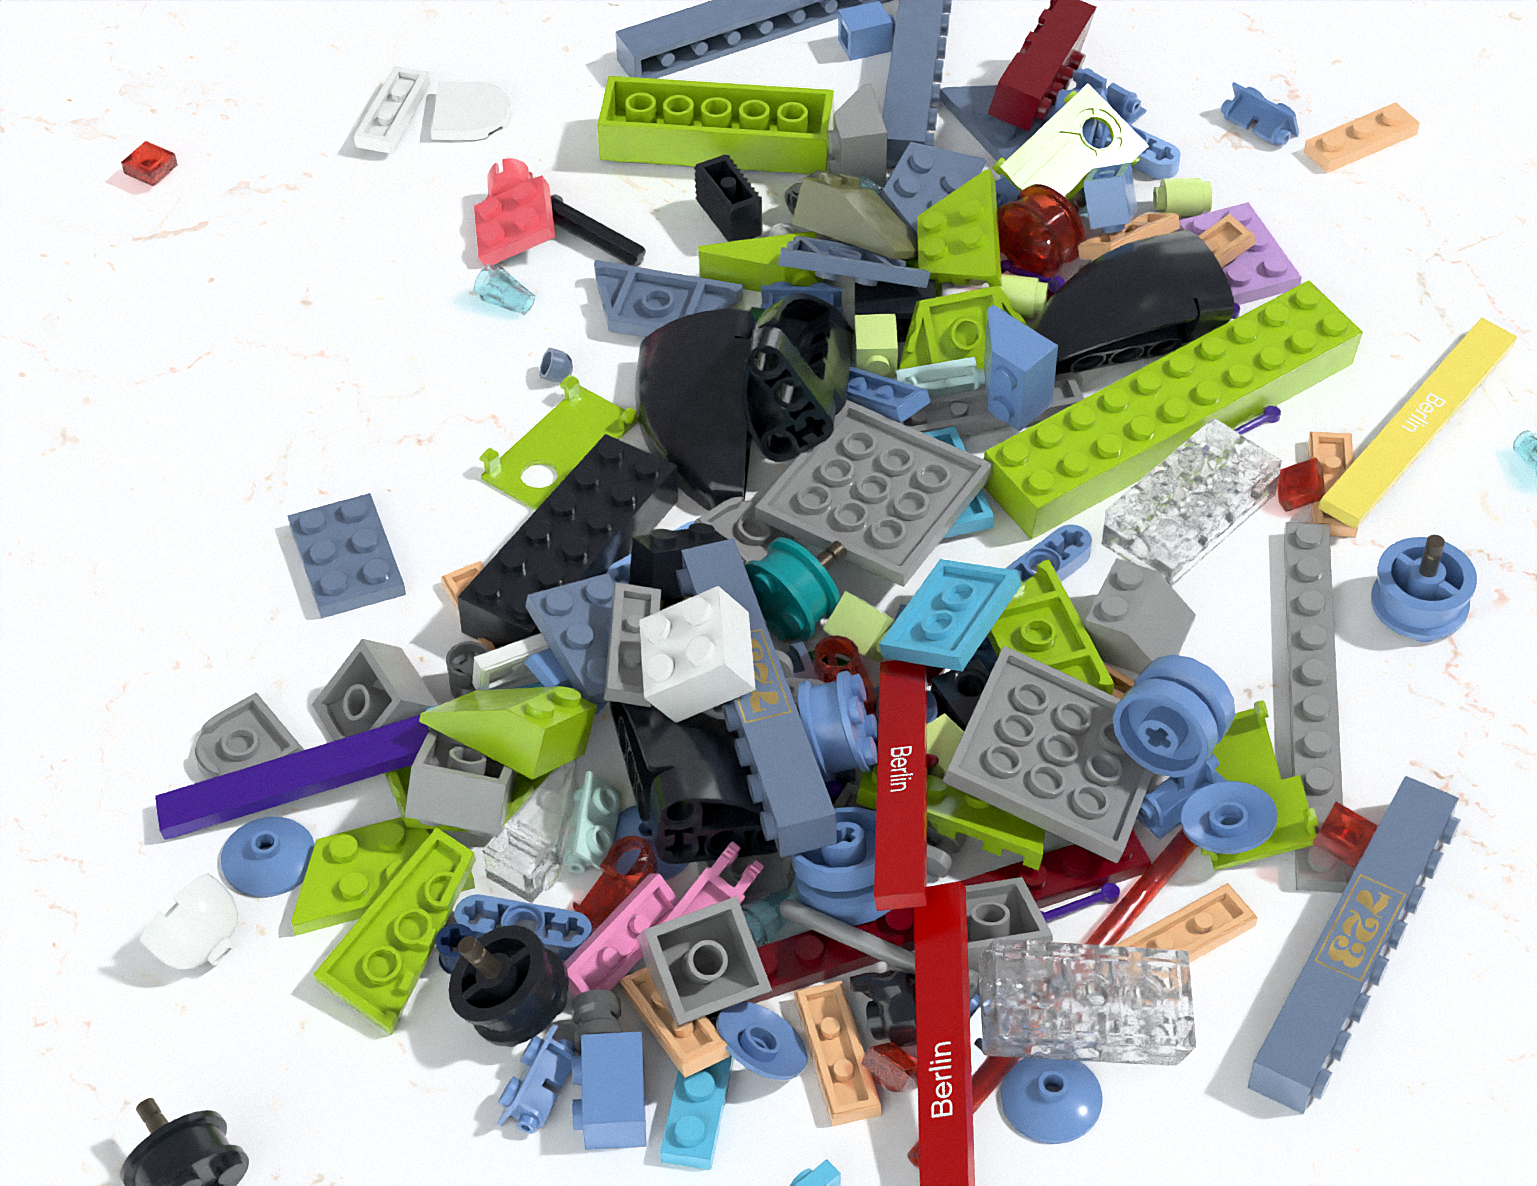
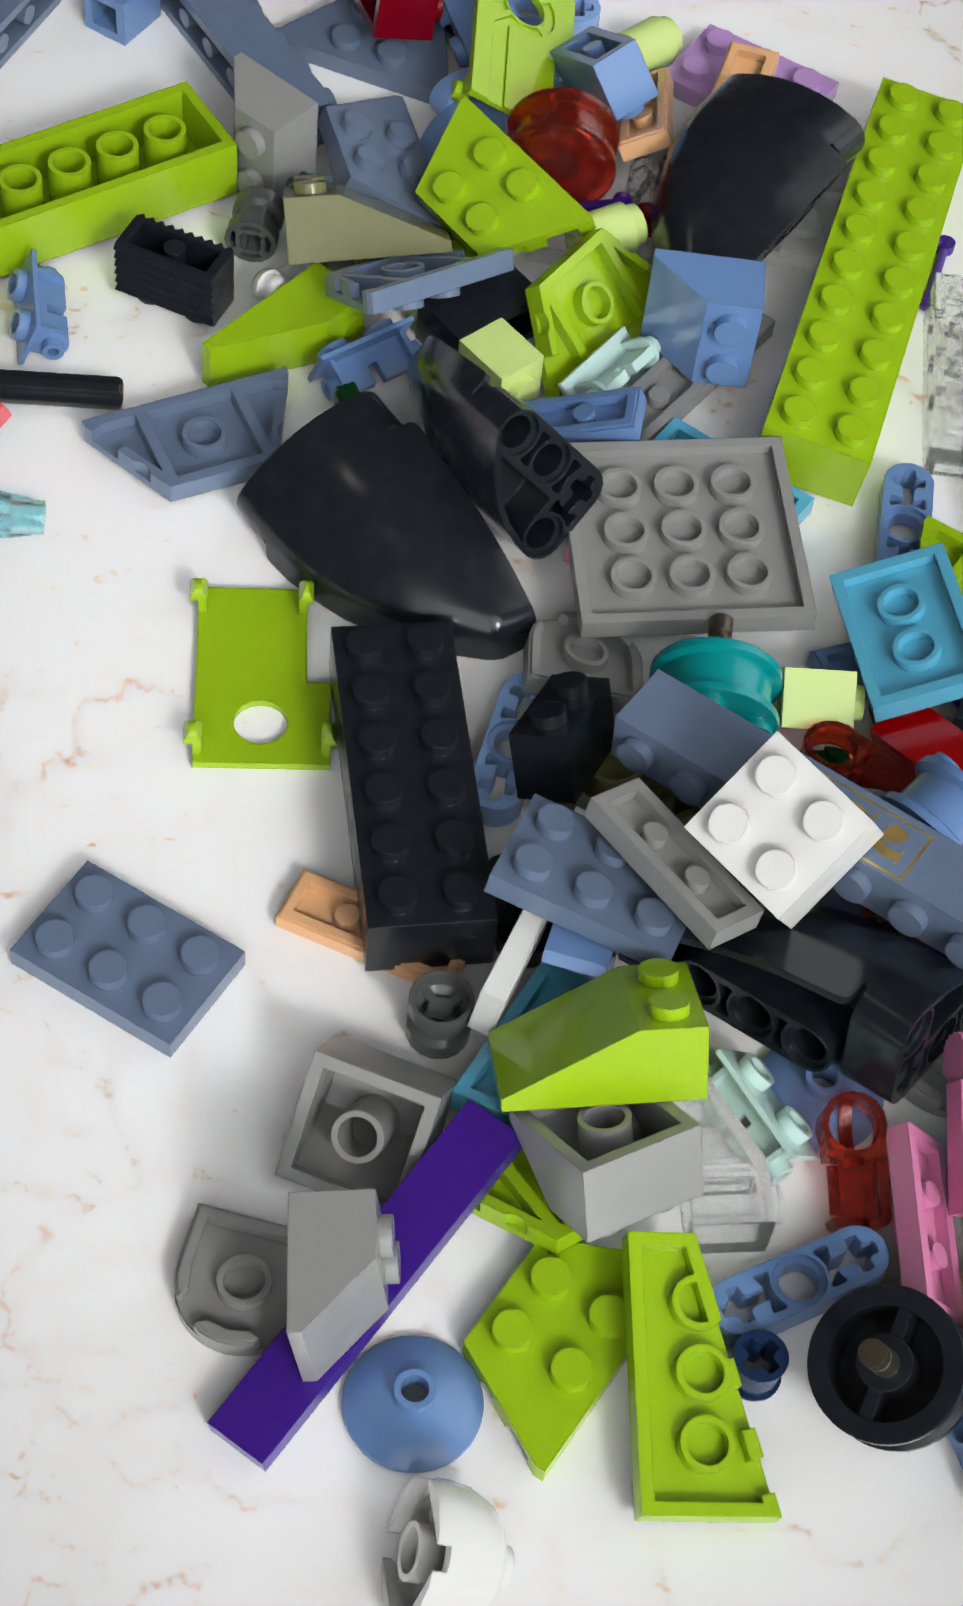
camera: 45 degrees left, 5 degrees up
(251, 748) = (336, 1273): none -> light grey slope
(555, 365) = (151, 571): sand blue hinge -> none
(627, 197) = (38, 310): none -> medium blue hinge

